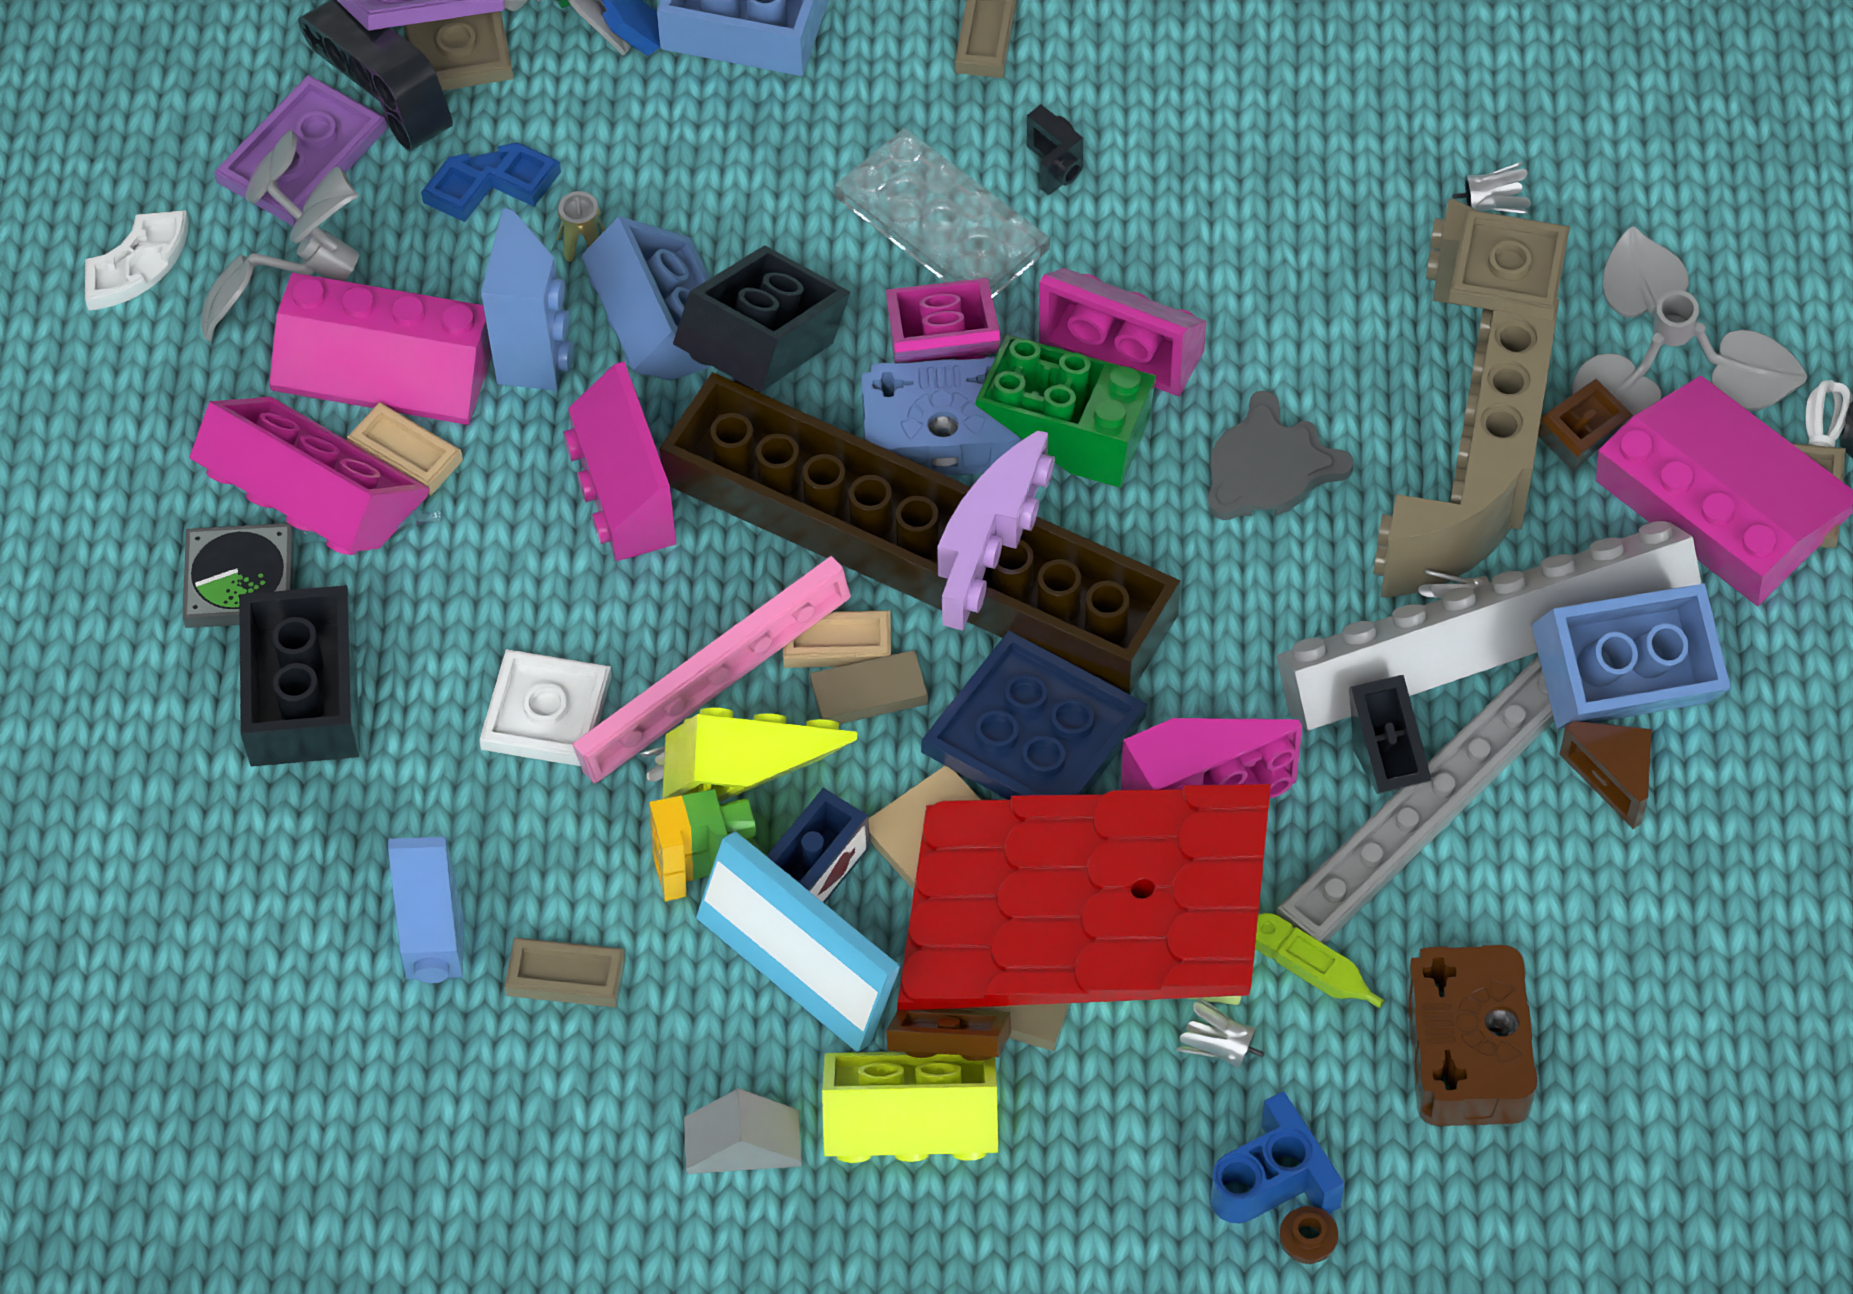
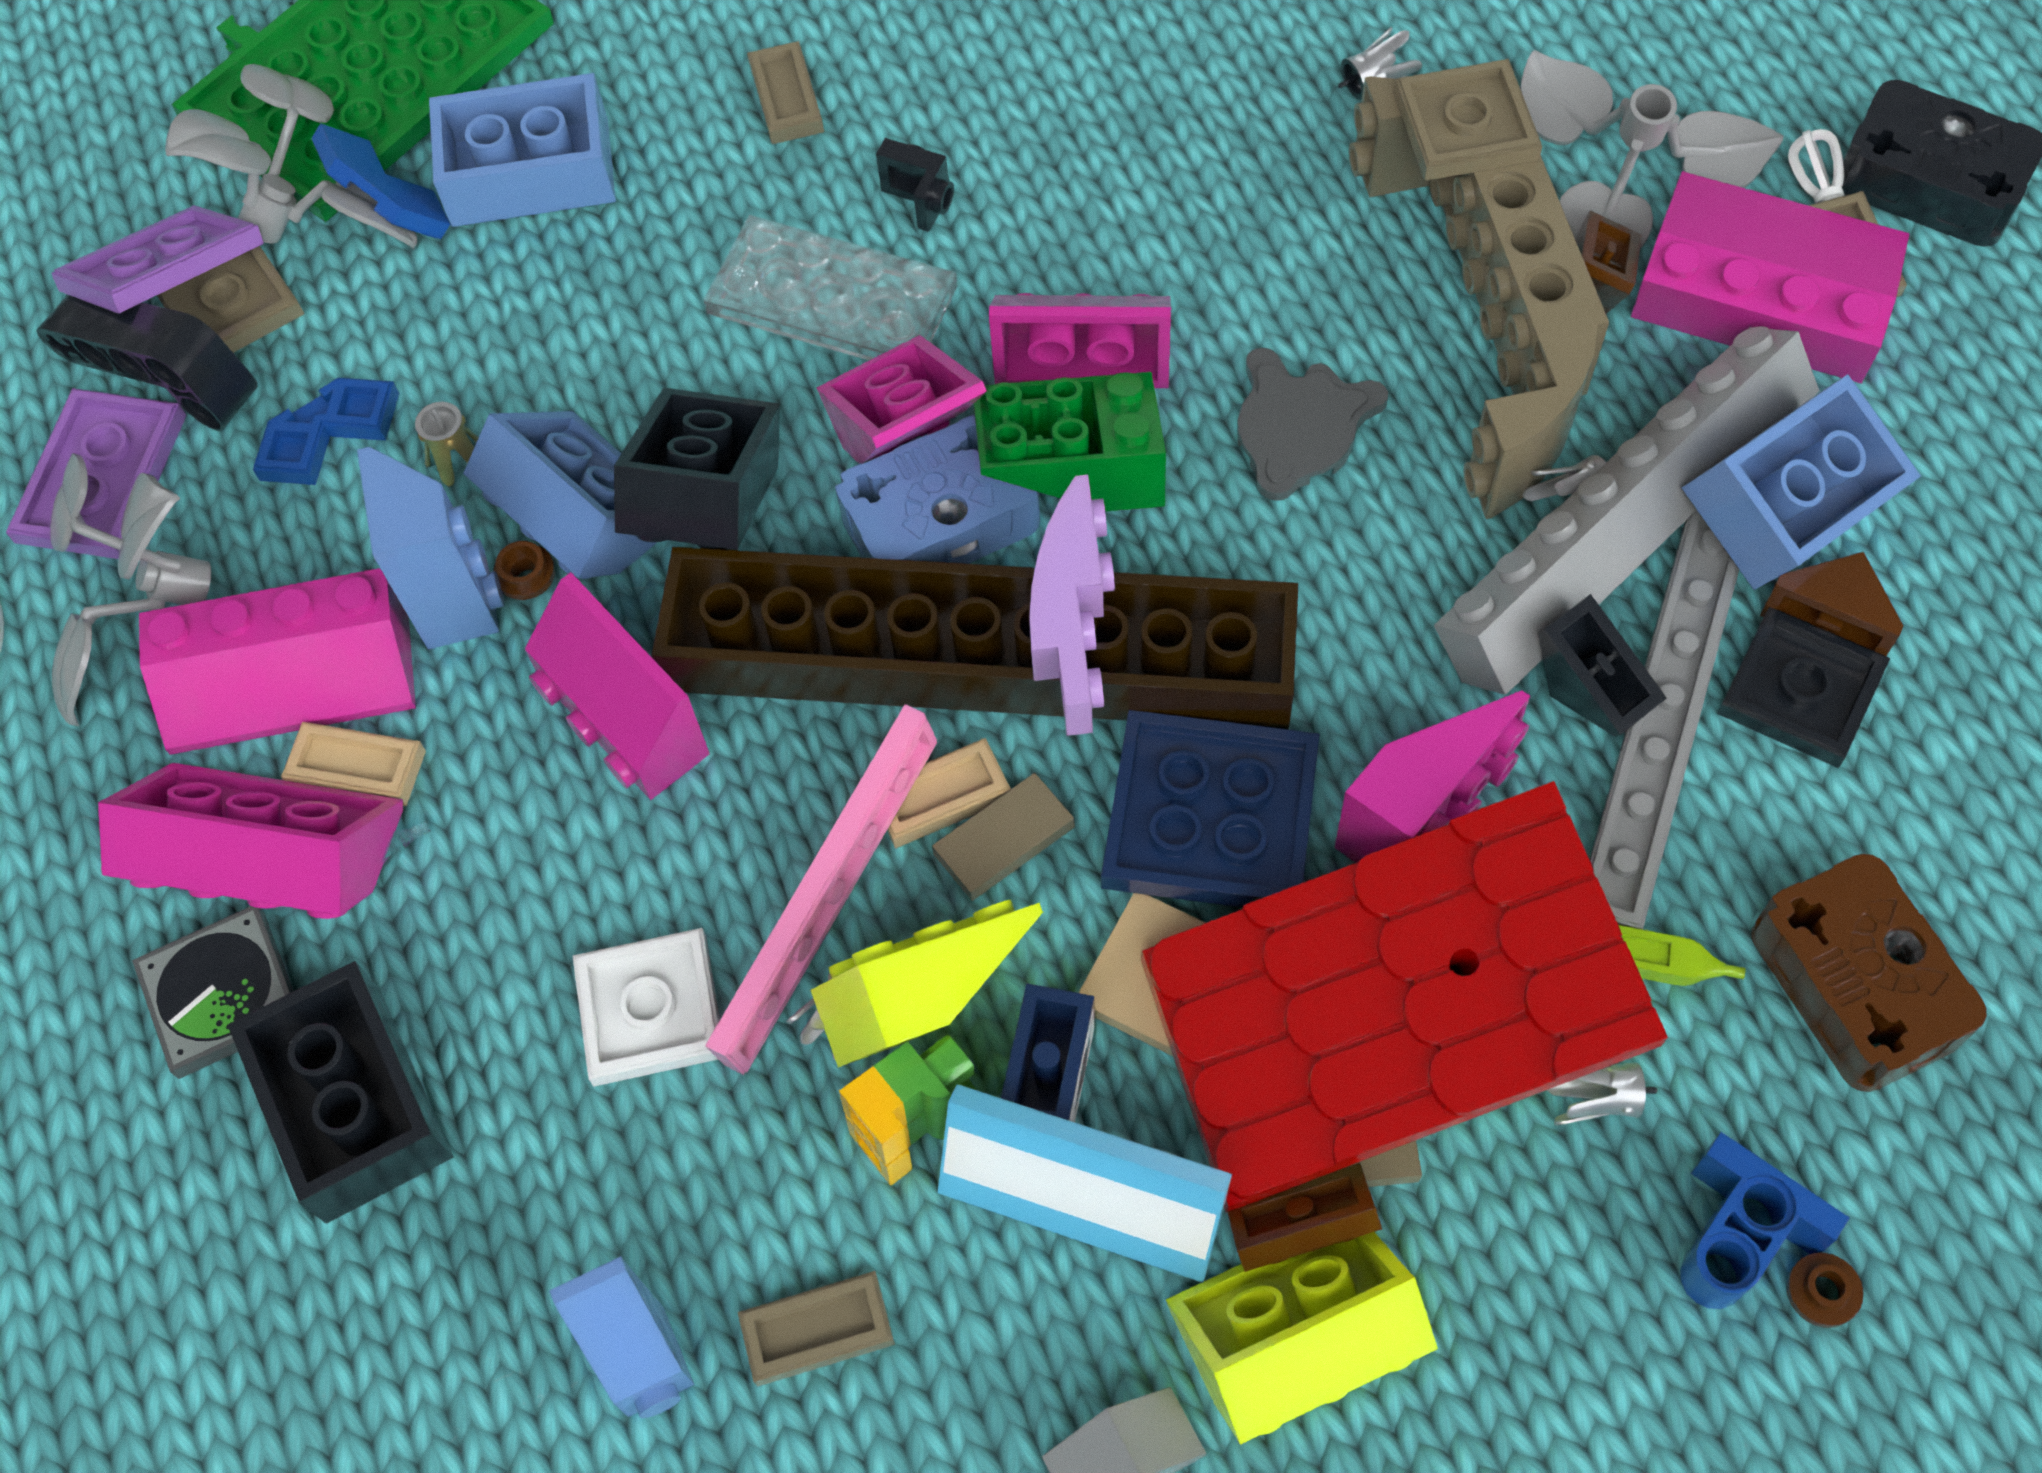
camera: 20 degrees left, 5 degrees up
(596, 338) = (521, 557): none -> reddish brown plate
(1558, 818) = (1804, 687): none -> black tile

